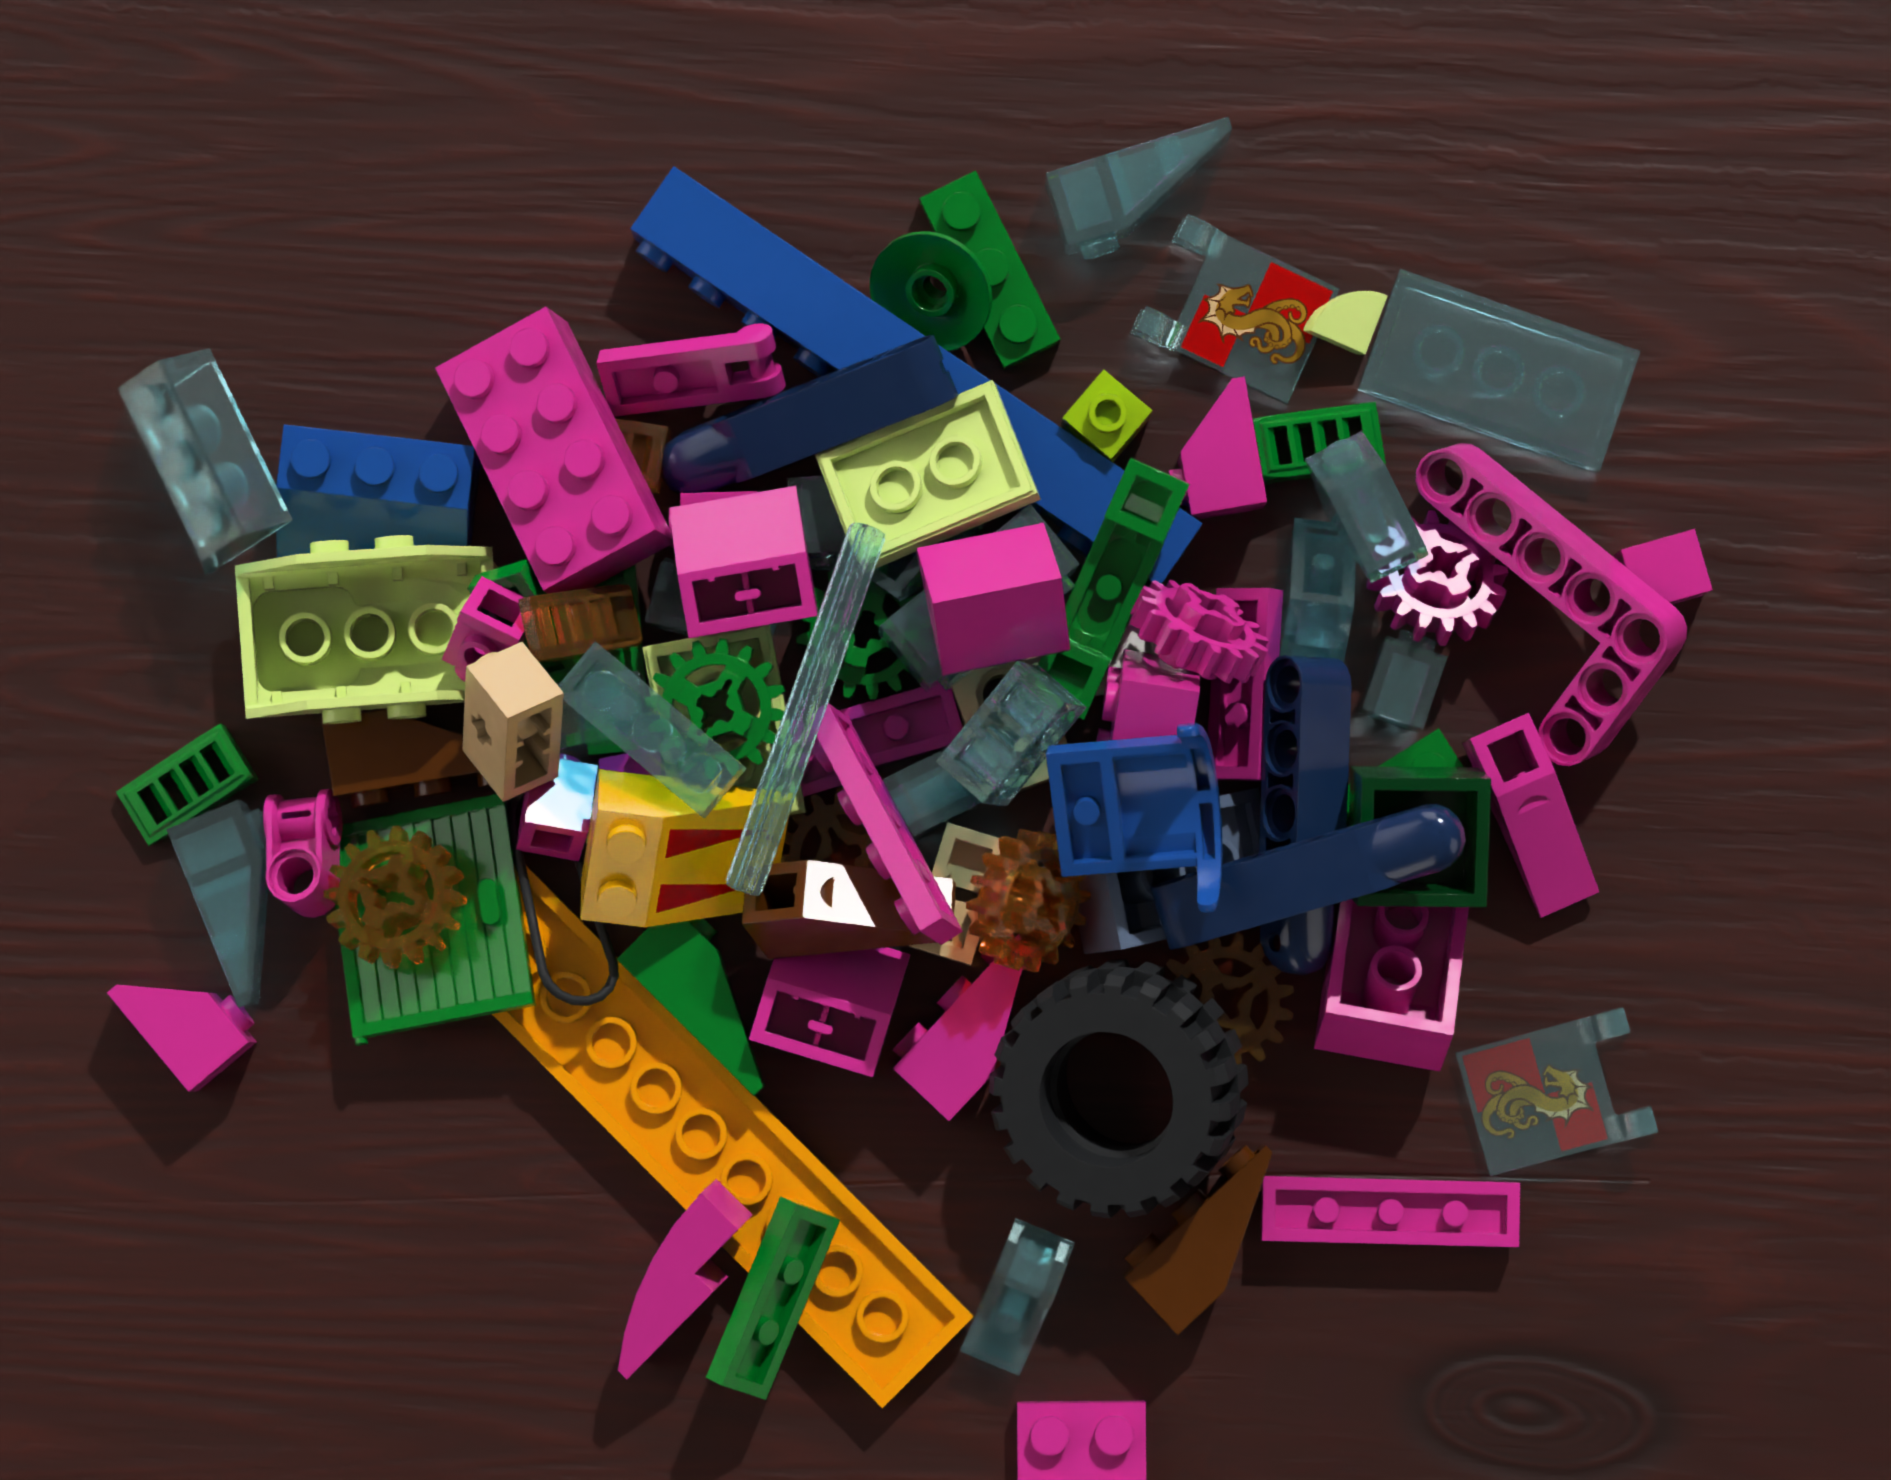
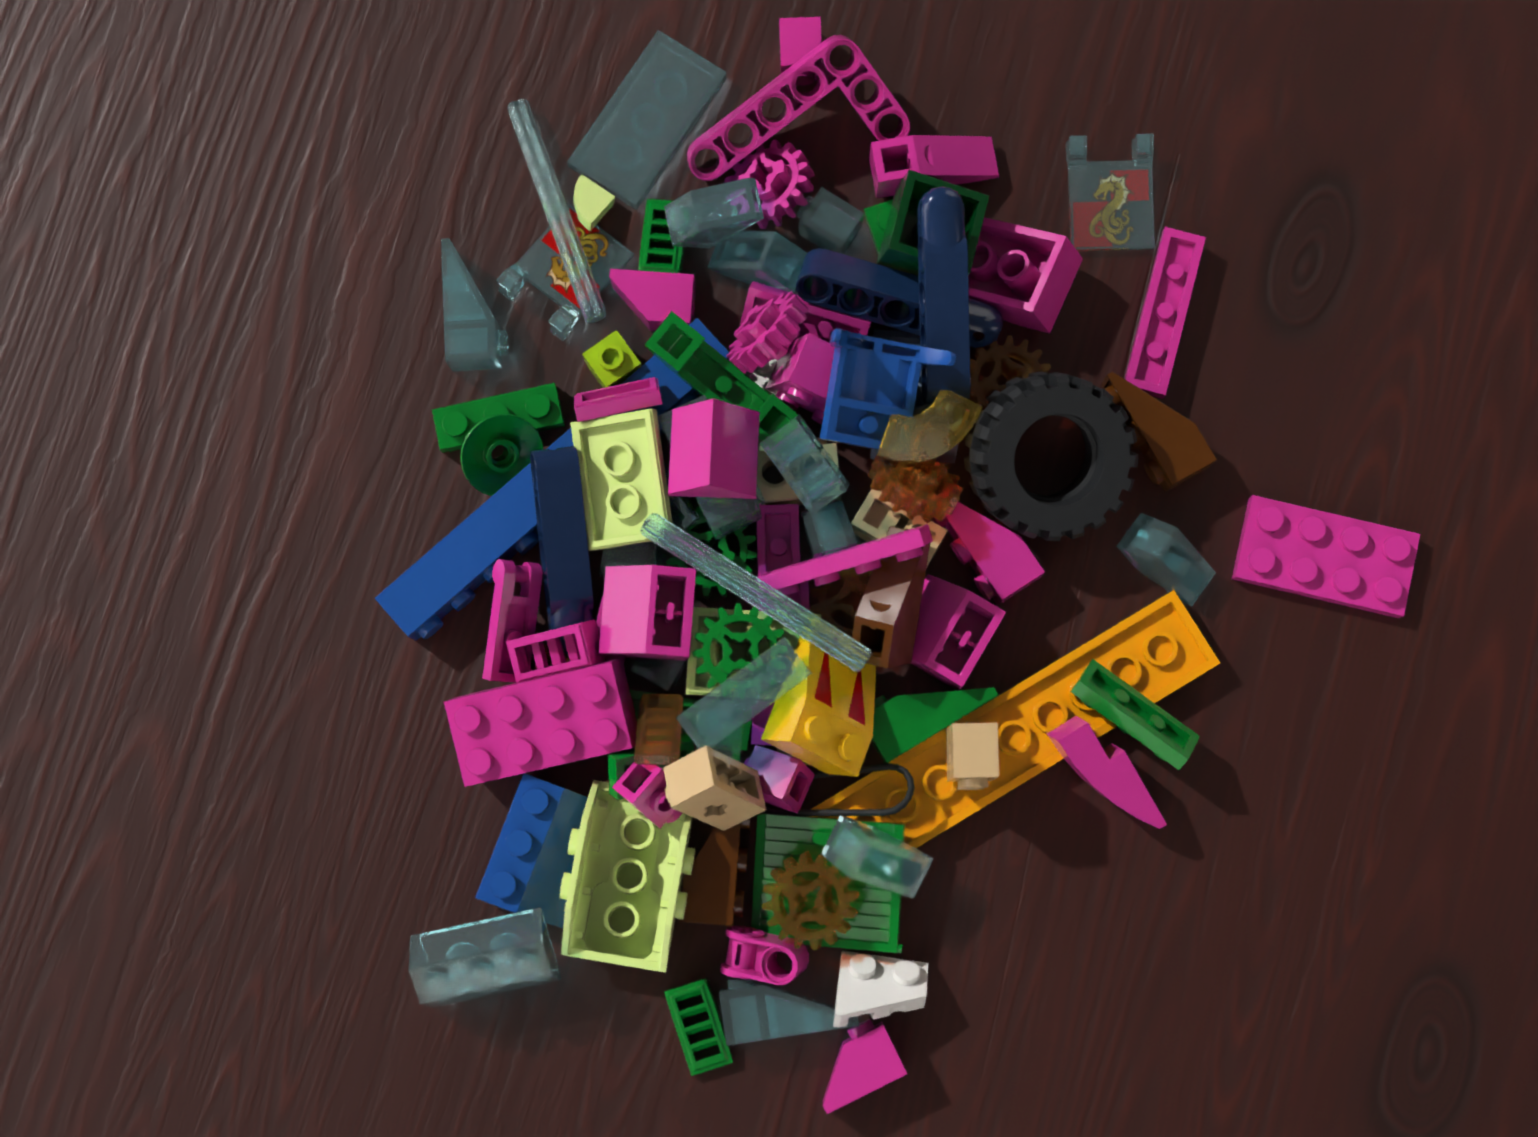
camera: 70 degrees left, 5 degrees down
(301, 1023) = (878, 986): none -> white wing
(475, 973) = (875, 857): none -> clear light blue slope
(651, 1075) = (972, 754): none -> tan brick
(681, 478) = (581, 644): none -> dark pink slope
(1044, 439) = (617, 399): none -> dark pink tile
(1101, 903) = (932, 431): none -> clear yellow tile
(1320, 273) = (556, 211): none -> clear light blue axle

